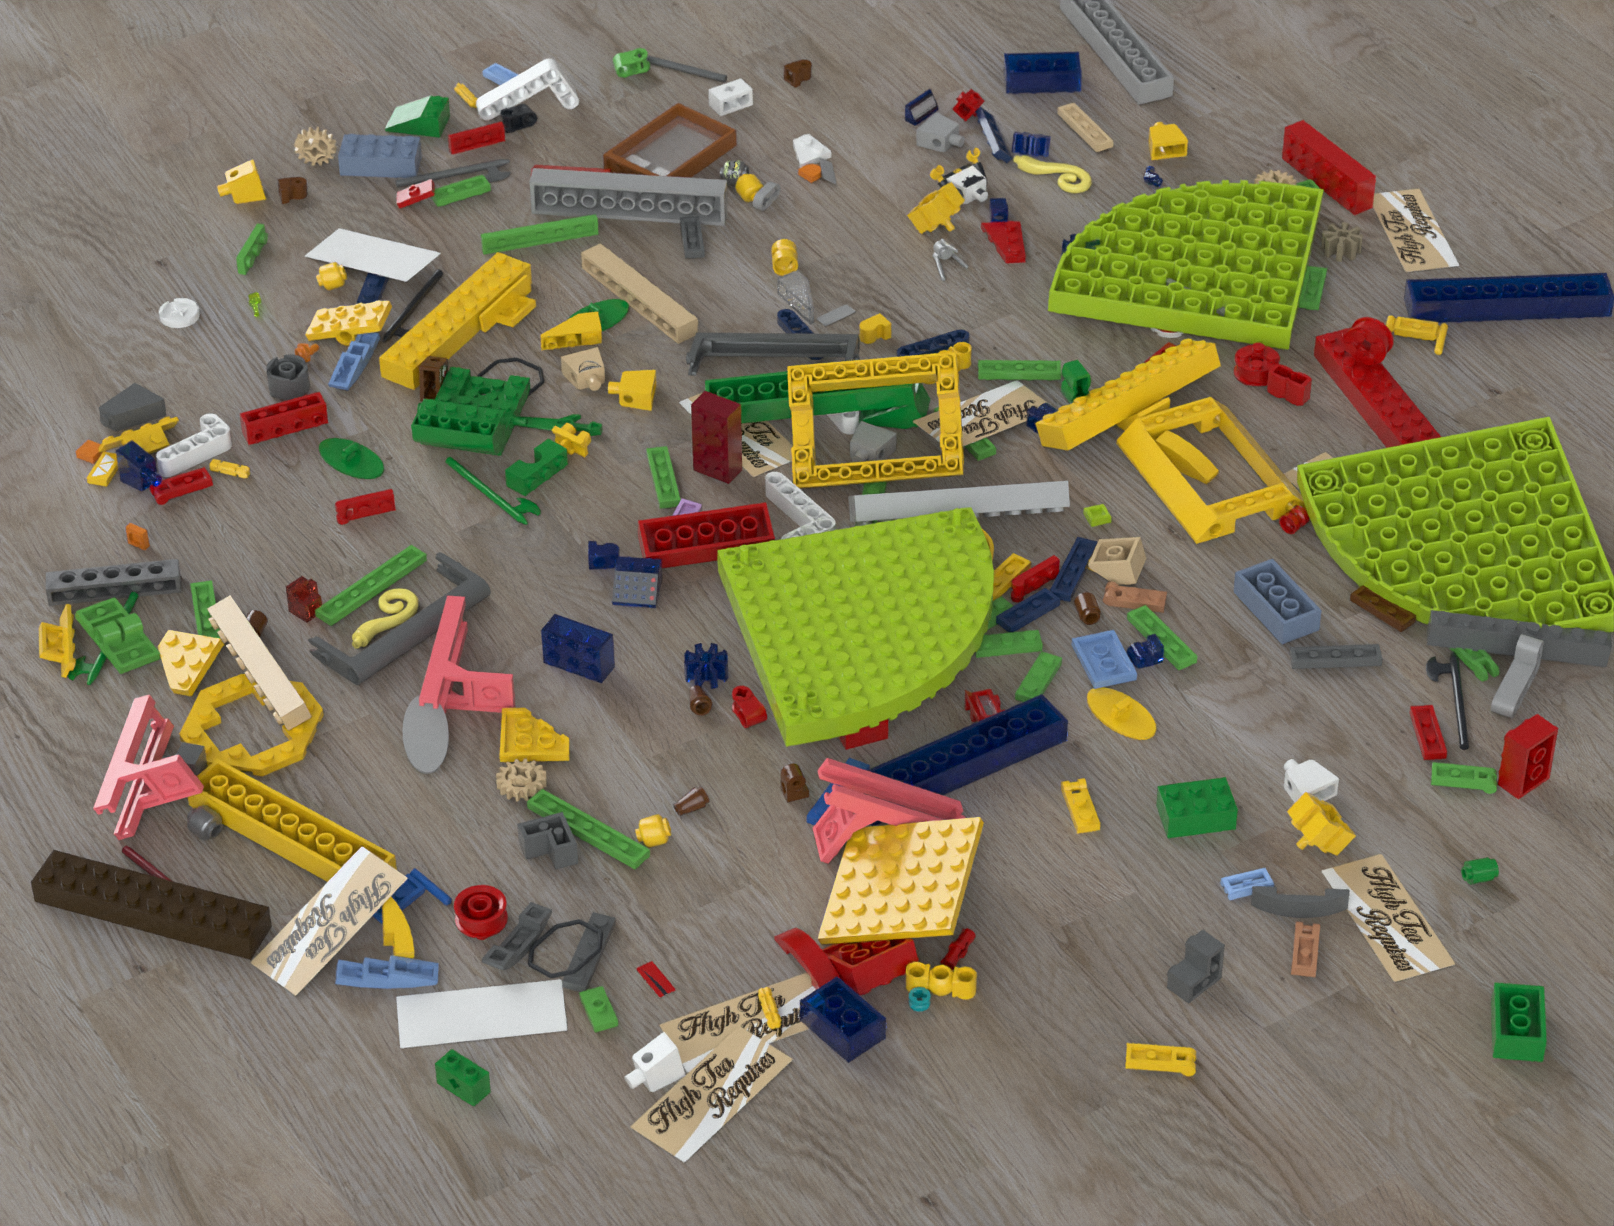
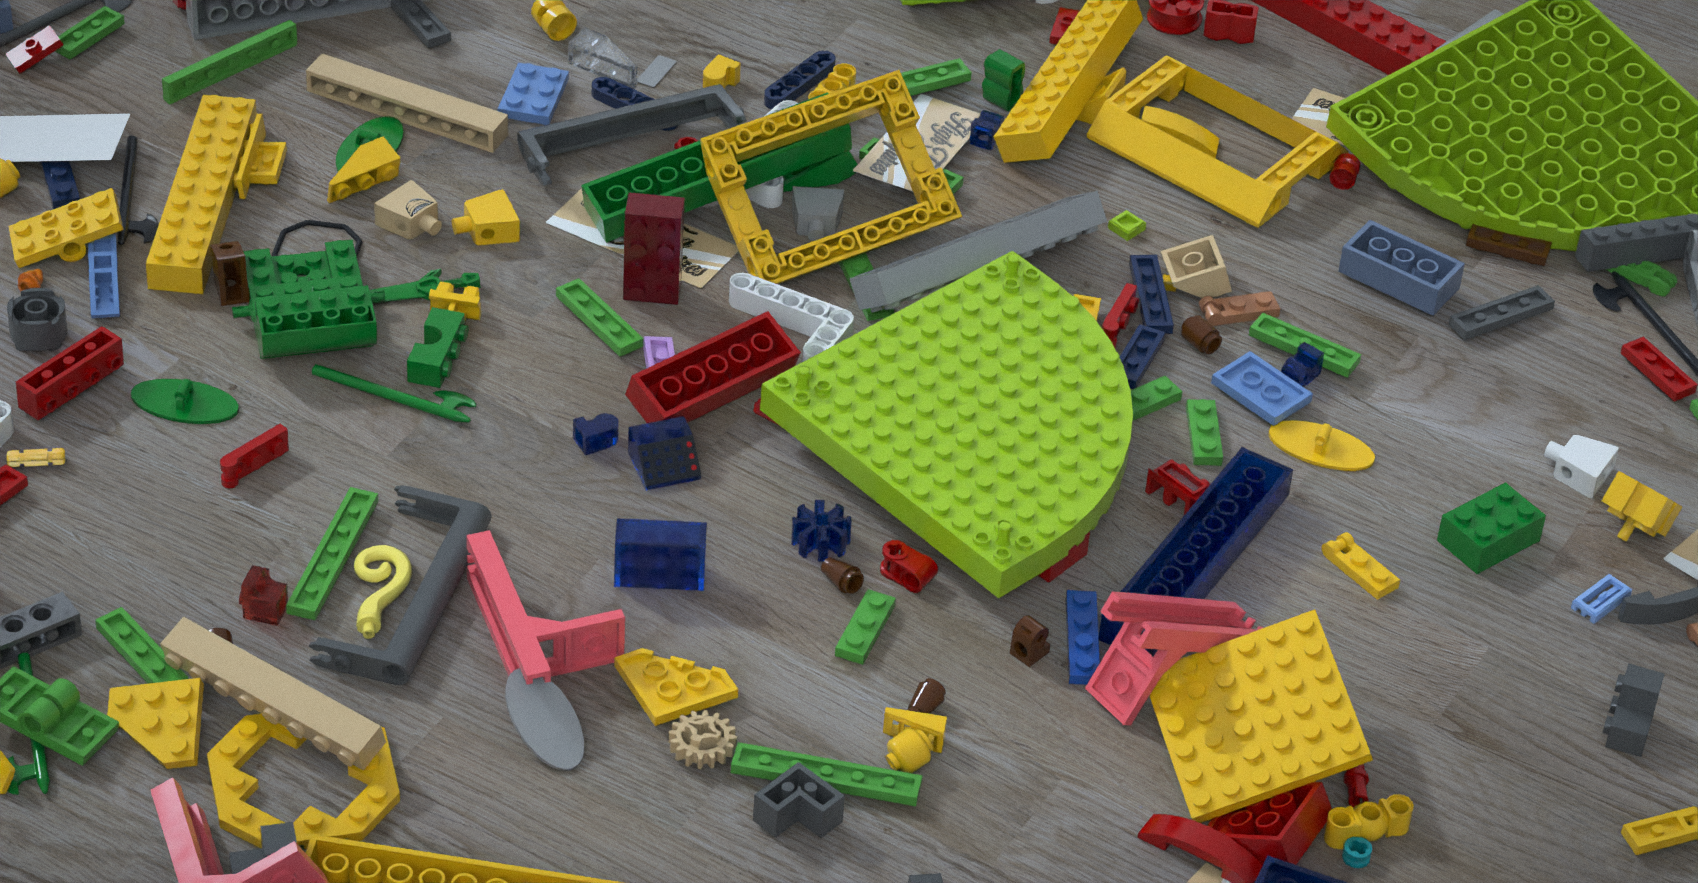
camera: 30 degrees left, 0 degrees up
(678, 819) = (932, 725): none -> yellow slope
(691, 740) = (865, 626): none -> bright green plate
(734, 309) = (533, 93): none -> medium blue plate

